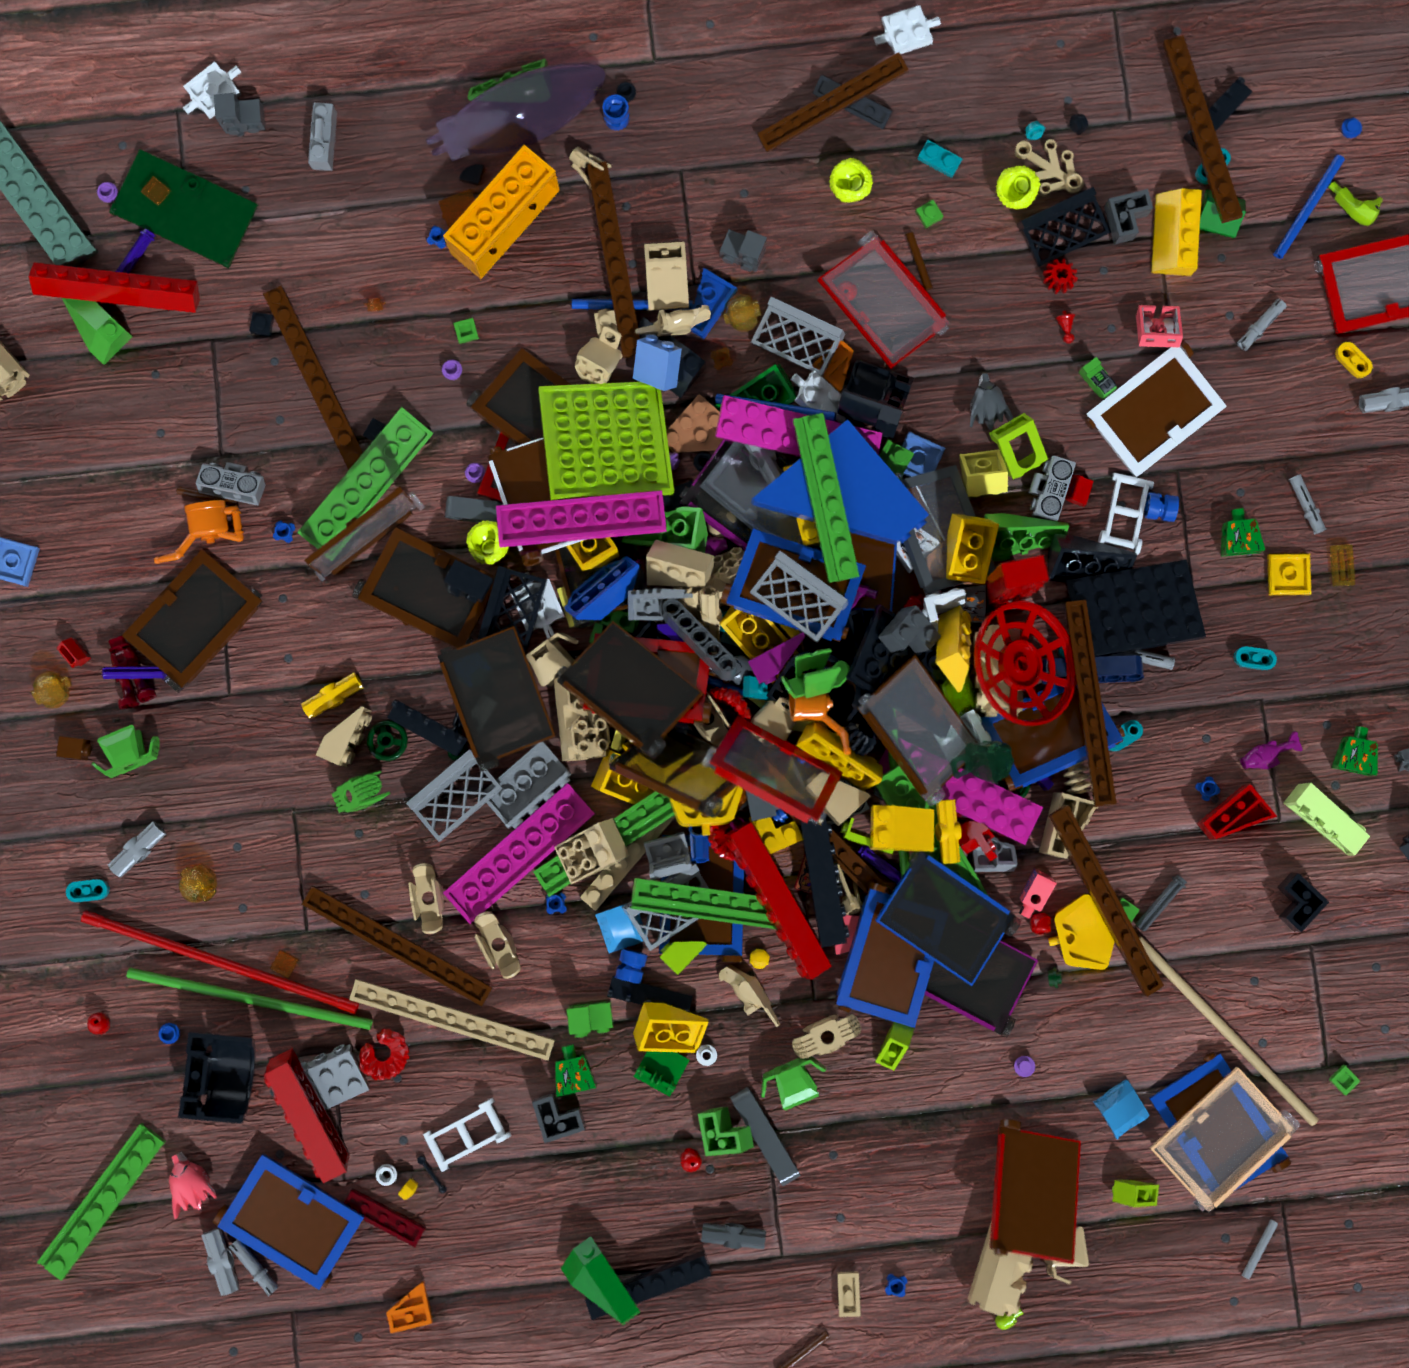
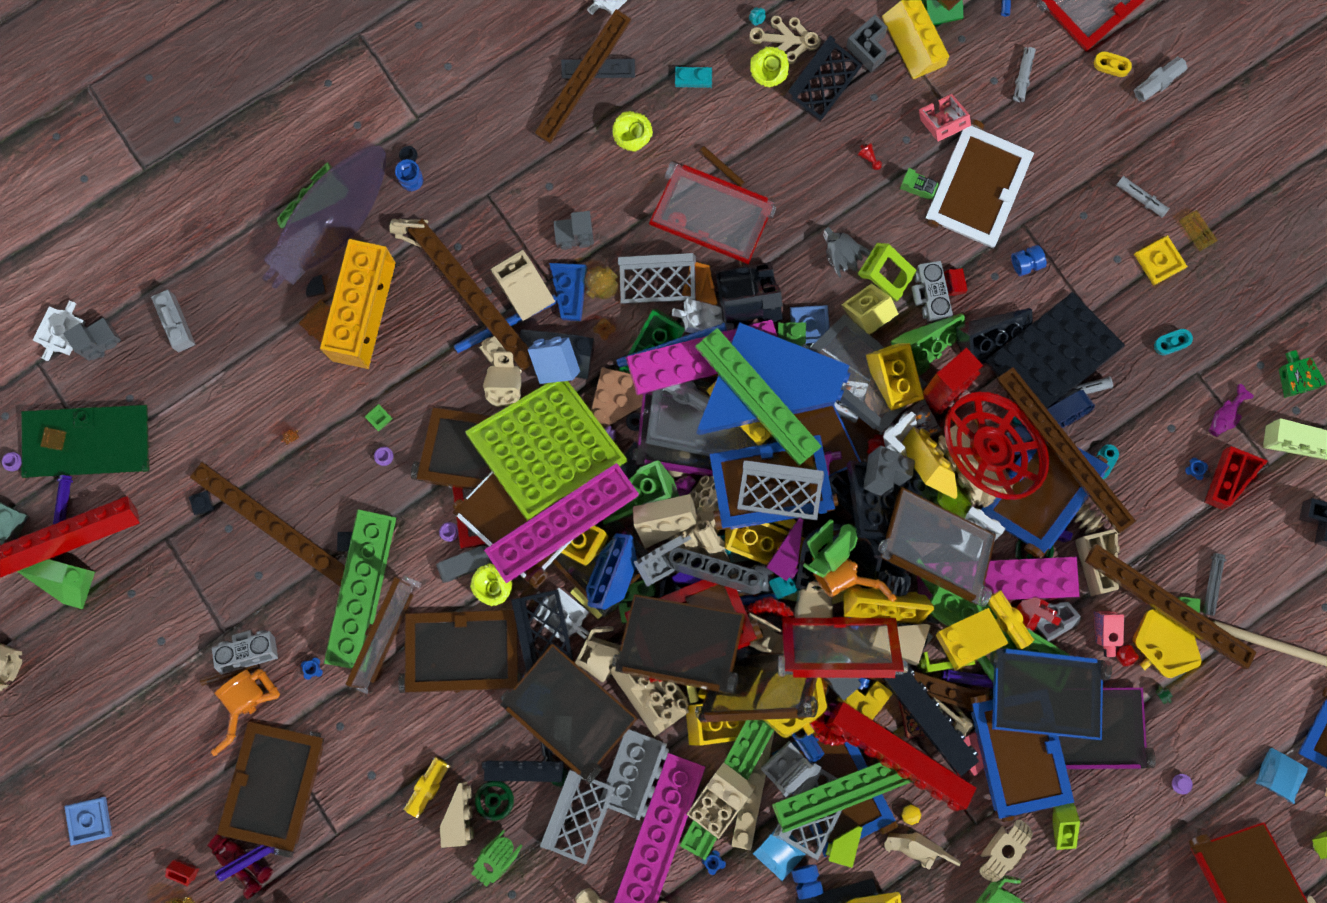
camera: 25 degrees left, 5 degrees down
(437, 231) = (309, 349): blue plate -> none
(467, 581) = (493, 627): black brick -> none
(677, 322) = (551, 318): tan animal -> none
(929, 214) = (709, 125): bright green plate -> none
(985, 761) = (1007, 544): clear green piece -> none
(1054, 270) = (842, 126): red gear -> none
(1104, 536) = (996, 309): white piece -> none
(1241, 536) = (1105, 250): green torso -> none

